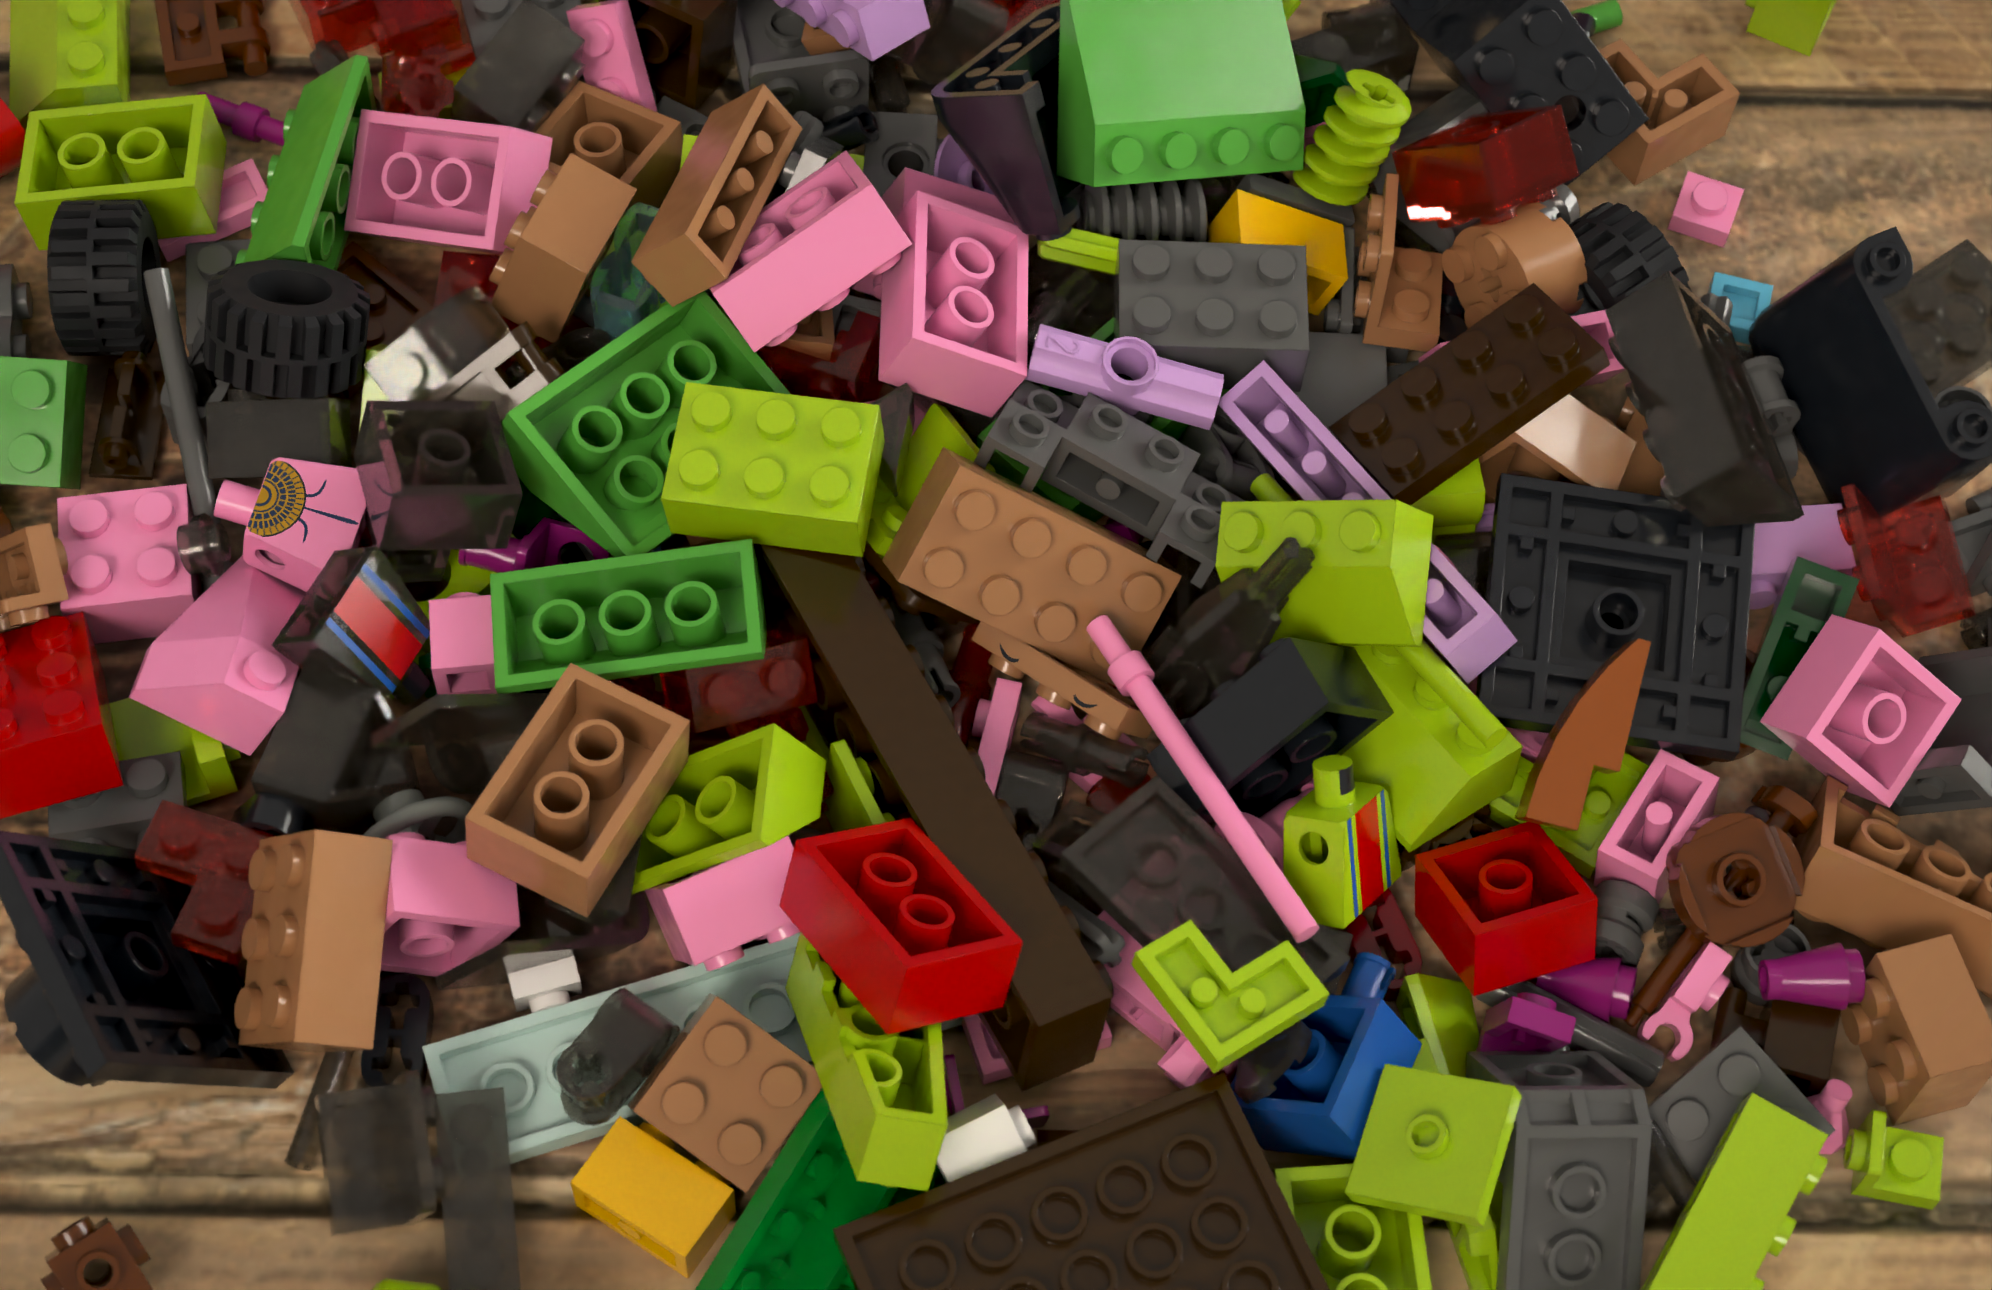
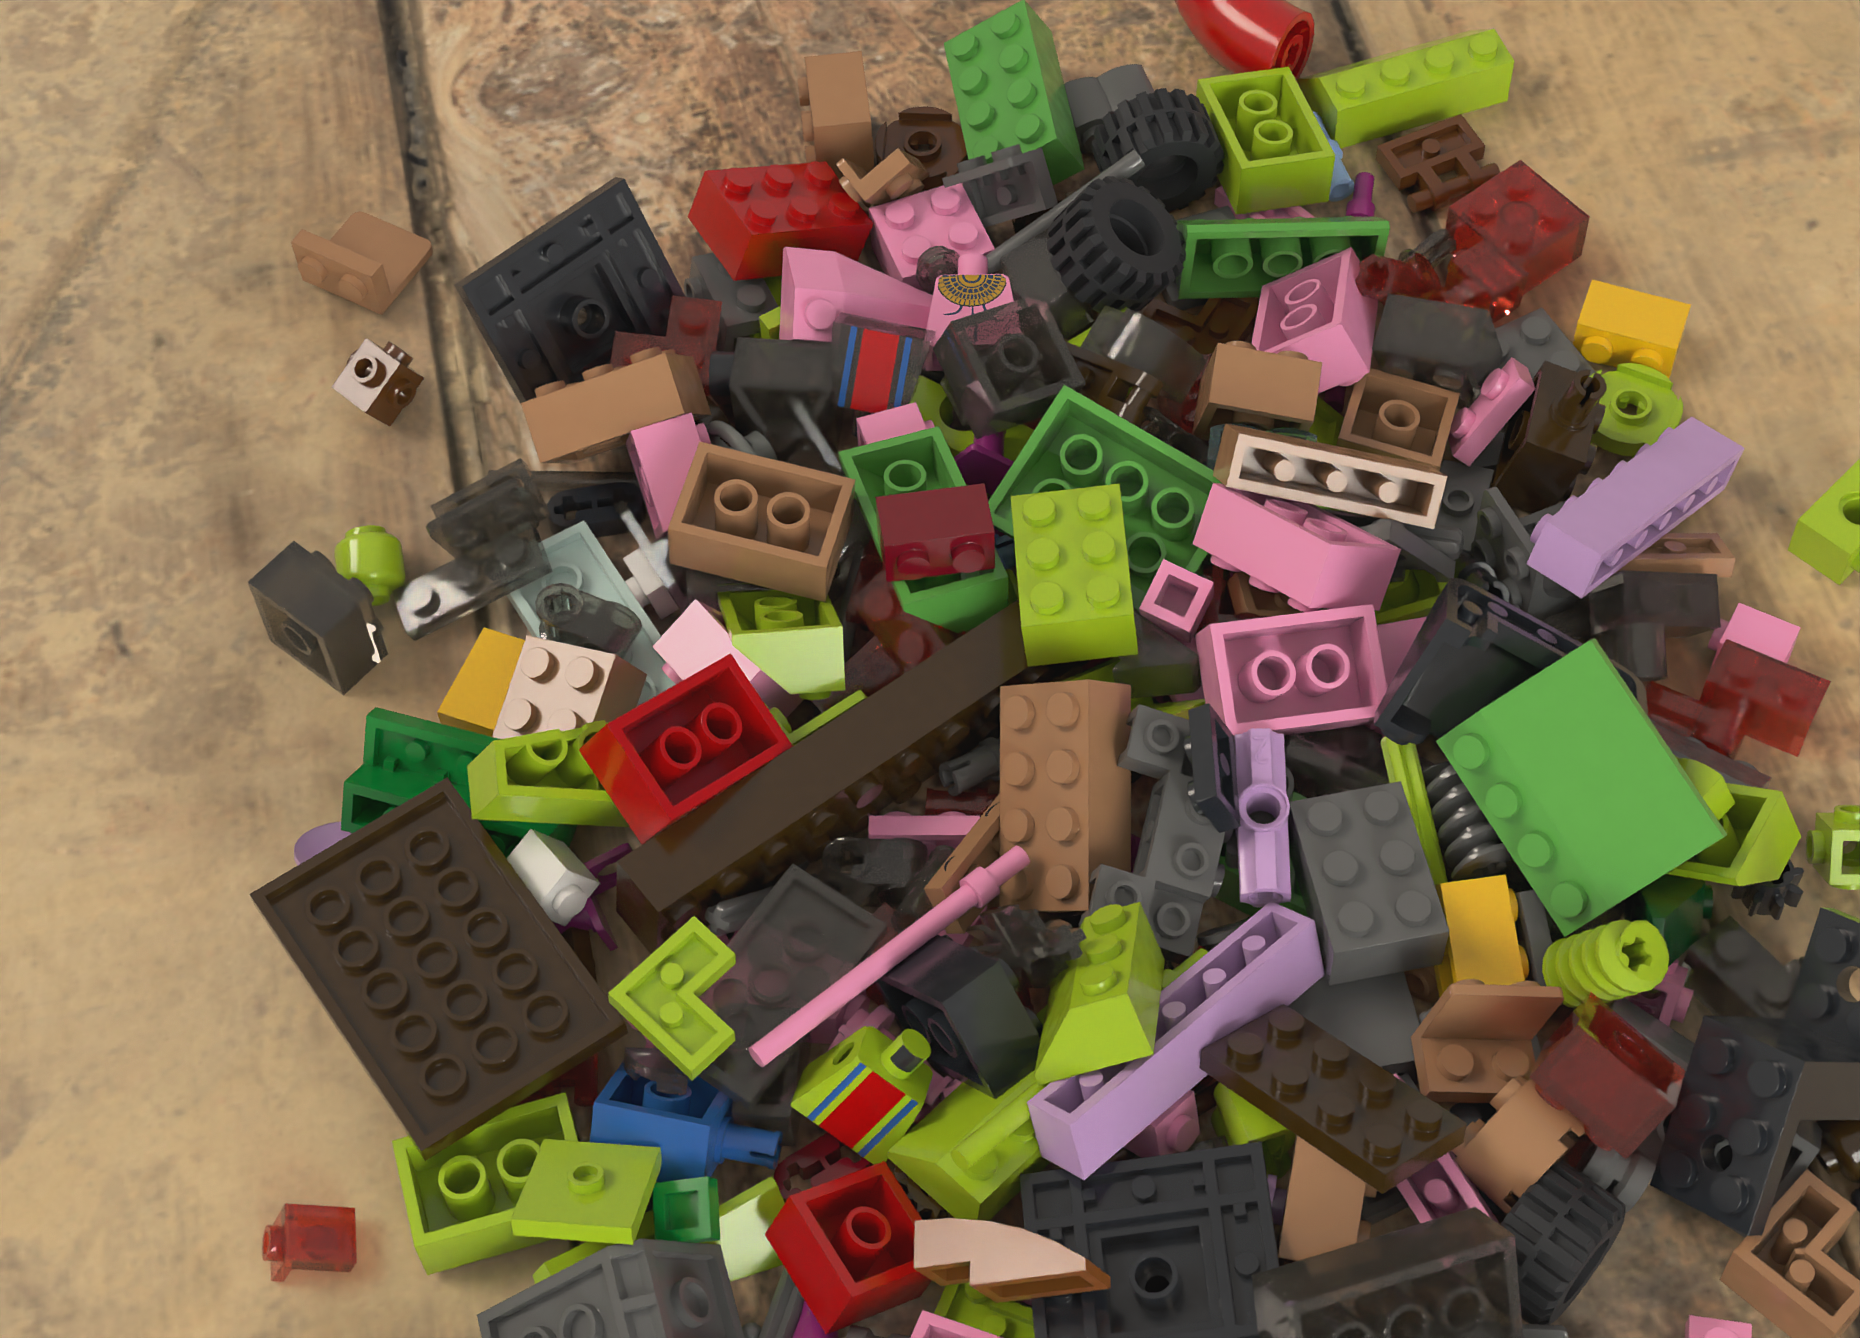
camera: 85 degrees right, 5 degrees down
(108, 438) = (1008, 187): none -> dark grey bracket
(686, 589) = (935, 532): none -> dark red brick
(833, 373) = (1177, 600): none -> bright pink brick
(1113, 392) = (1214, 768): none -> black plate
(1452, 1049) = (687, 1210): none -> green plate
(1525, 1024) = (749, 1286): magenta bracket -> none

